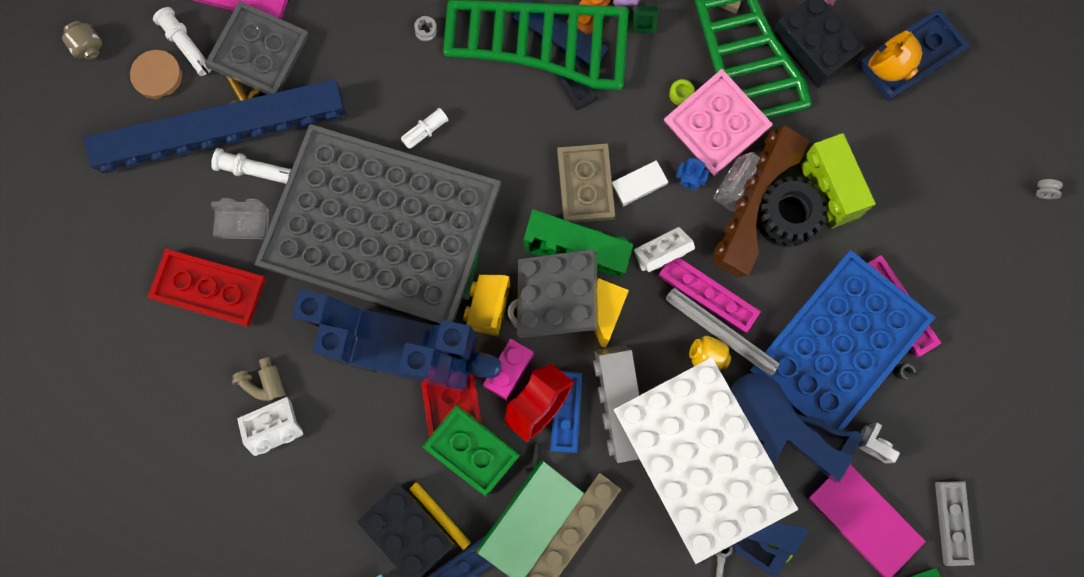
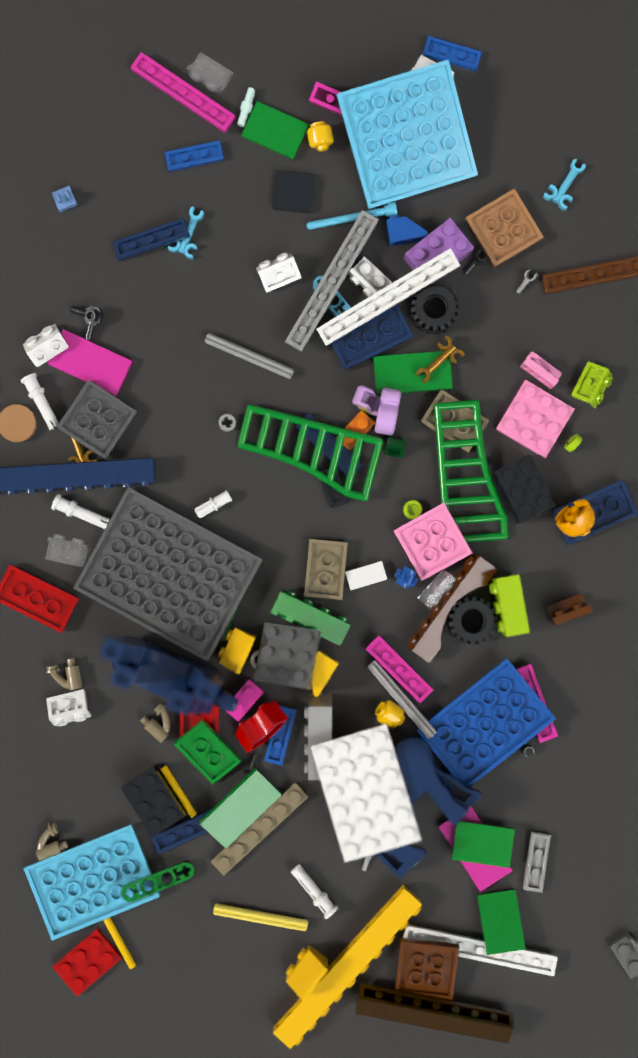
camera: 10 degrees right, 10 degrees up
(394, 434) = (154, 728): none -> dark tan plant
(663, 249) = (372, 633): white bracket -> none
(877, 448) = (496, 802): white bracket -> none
(877, 509) = (483, 843): none -> green tile
(912, 177) = (568, 609): none -> reddish brown bracket

